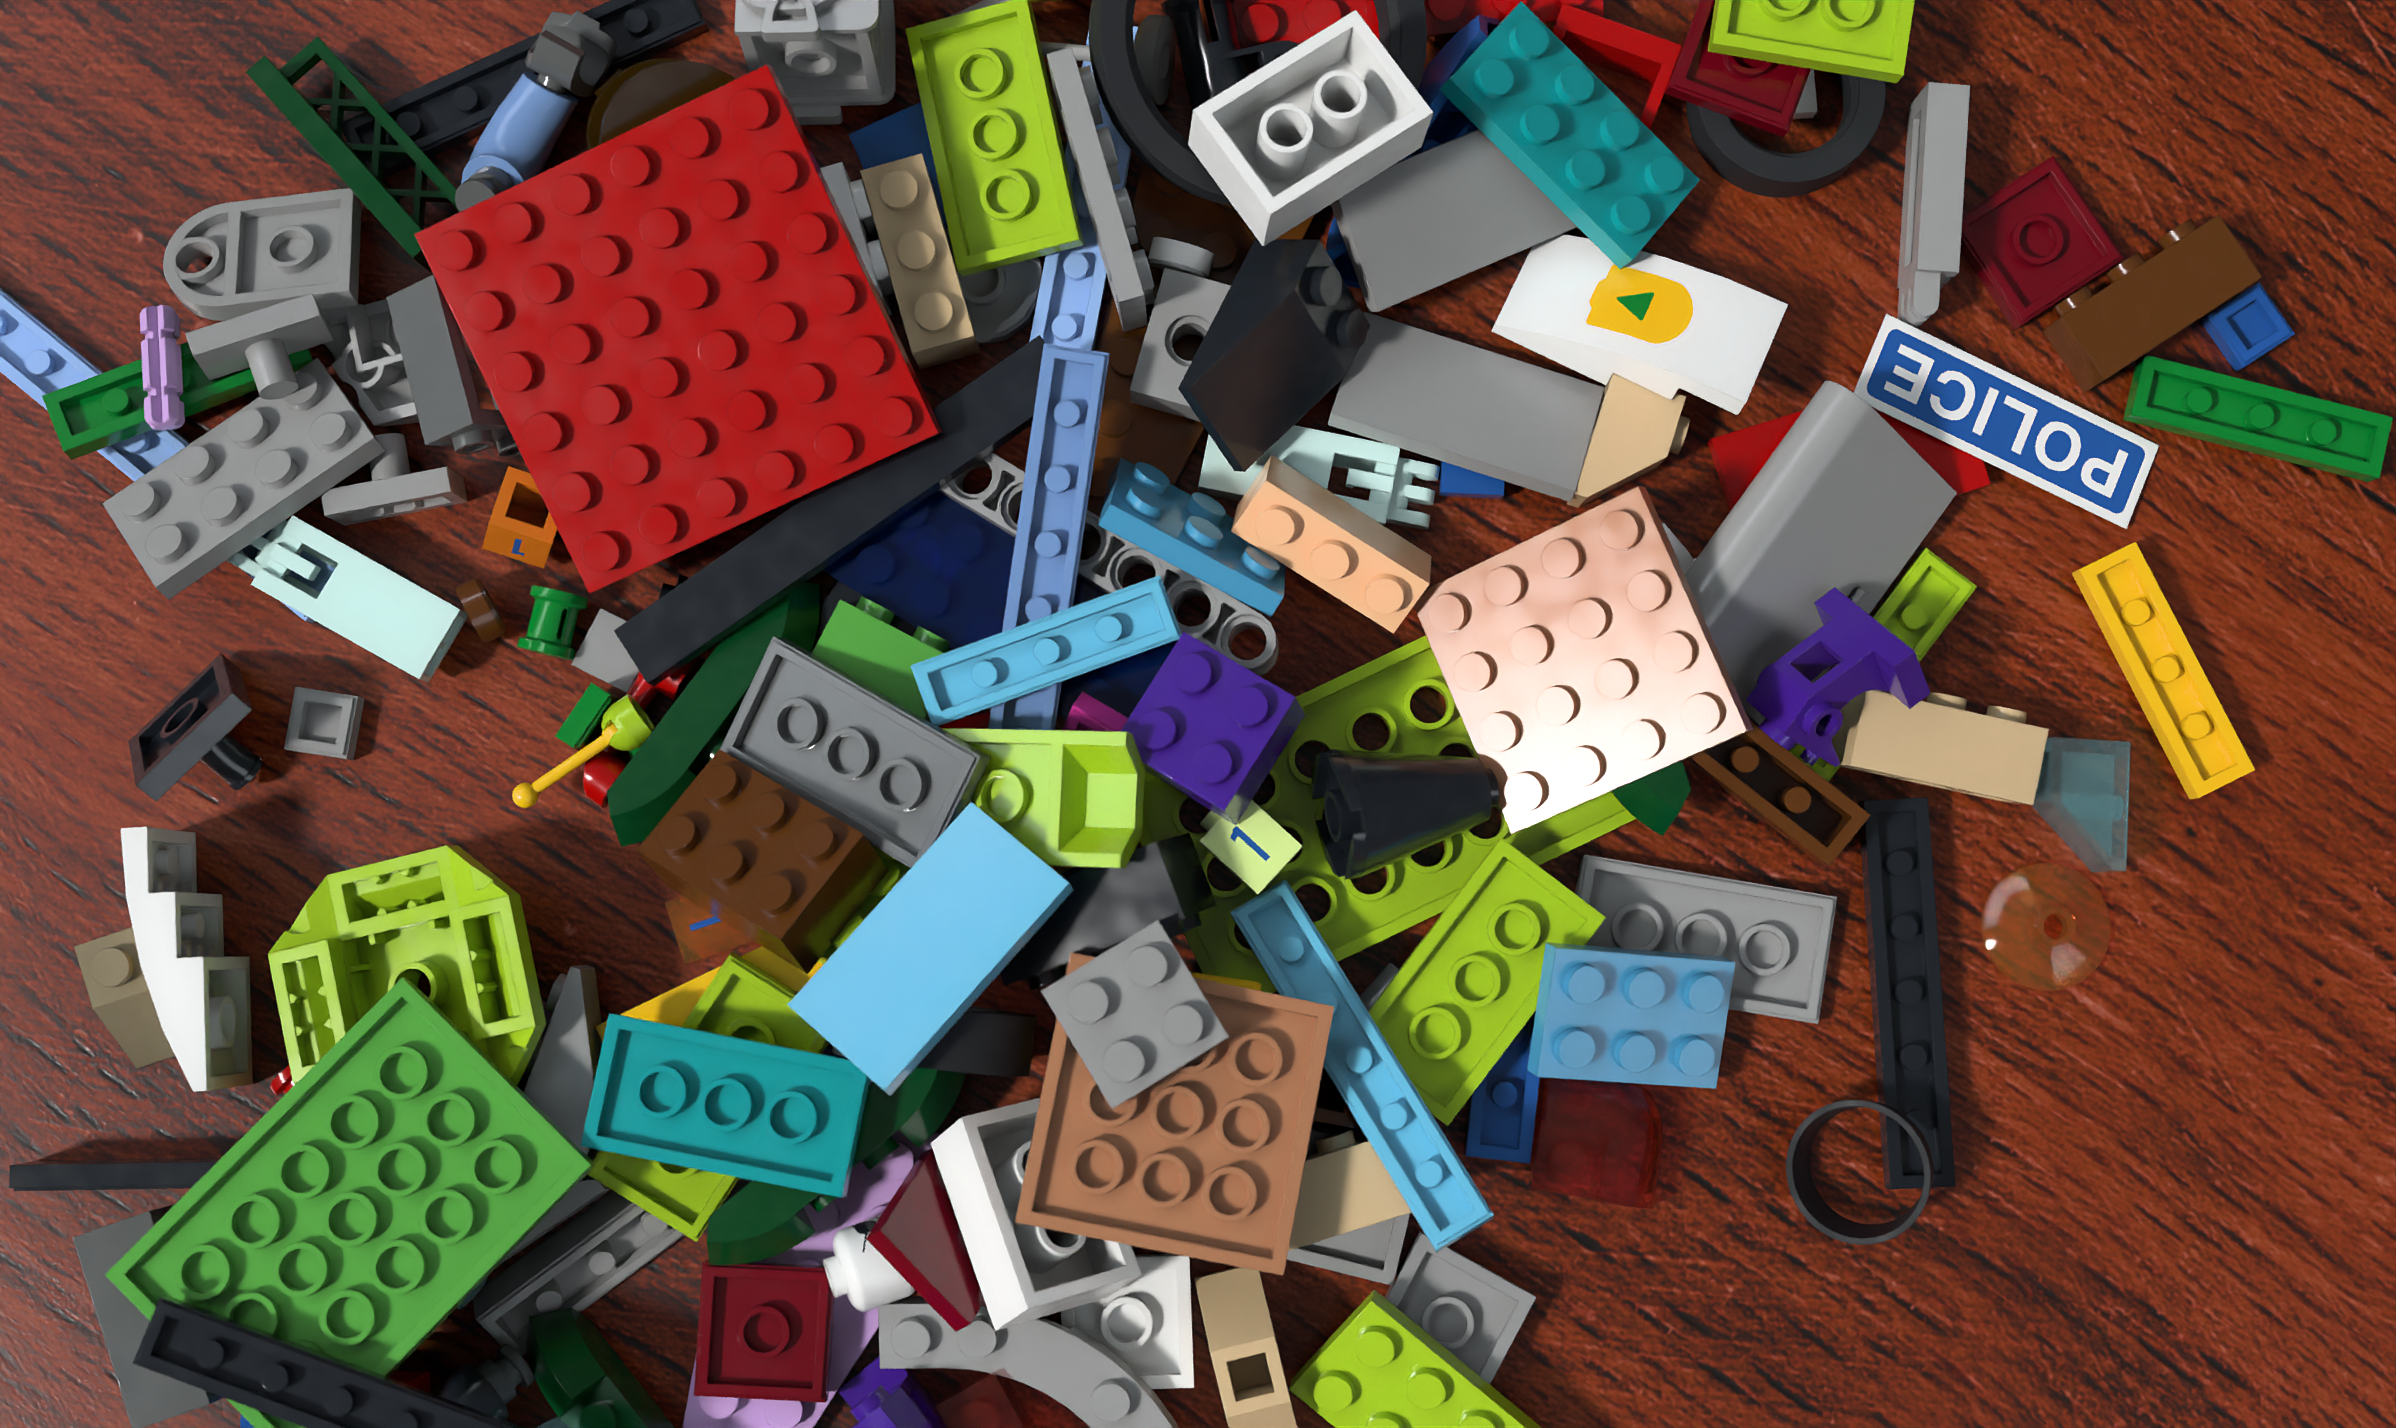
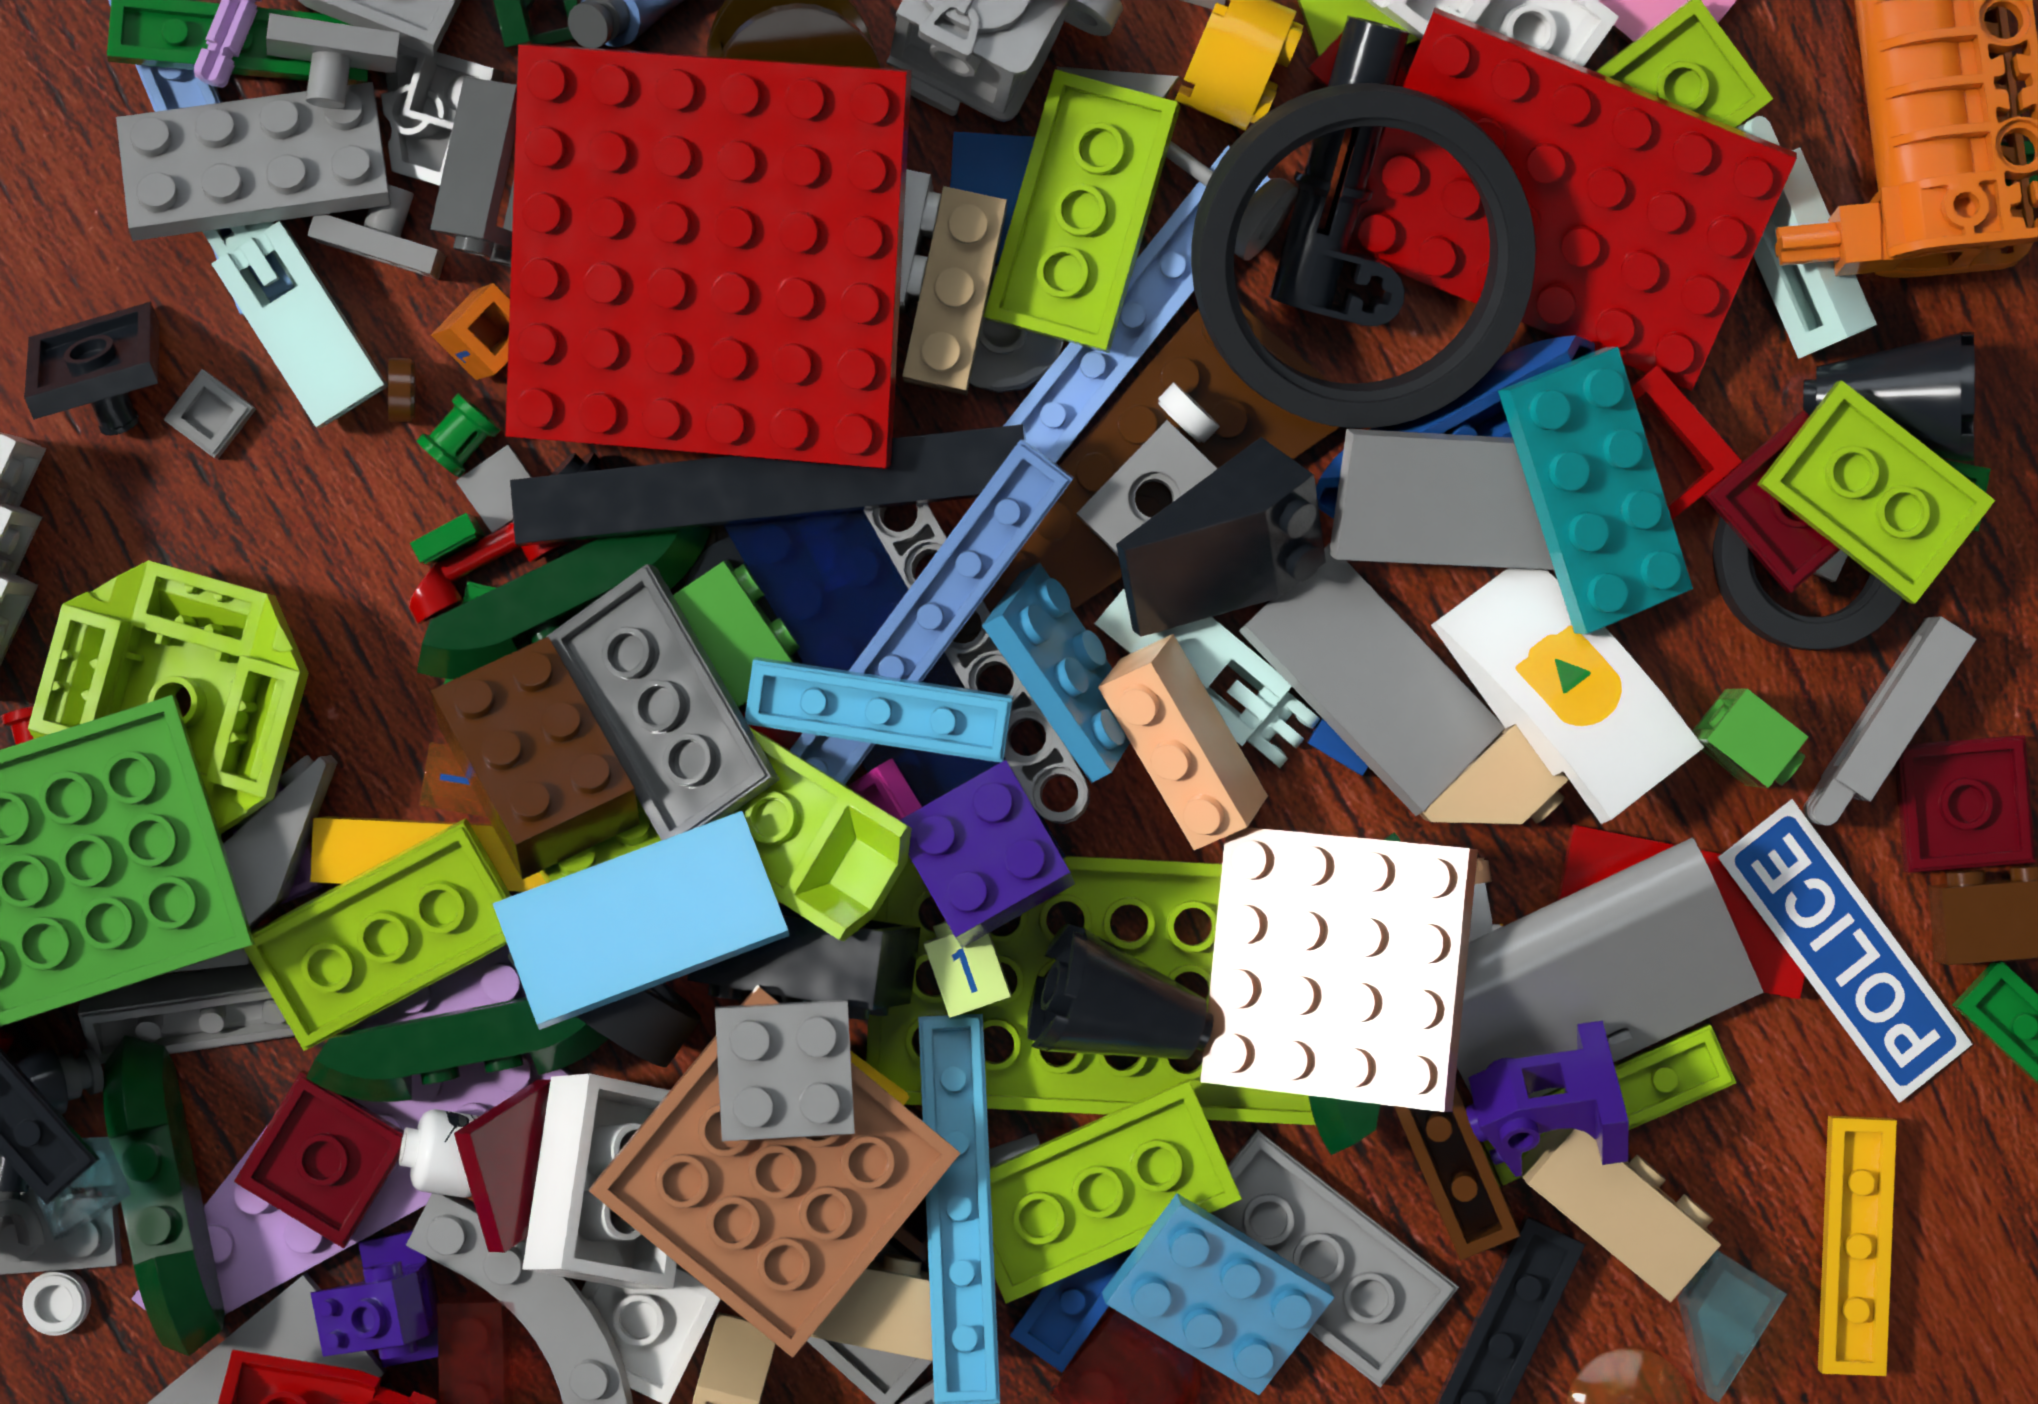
camera: 30 degrees right, 5 degrees up
(623, 728) = (473, 567): hinge -> none
(726, 1105) = (393, 953): teal plate -> none
(1097, 172) = (1154, 297): light grey plate -> none
(1309, 127) = (1356, 375): white brick -> none
(1825, 275) = (1750, 739): none -> bright green brick

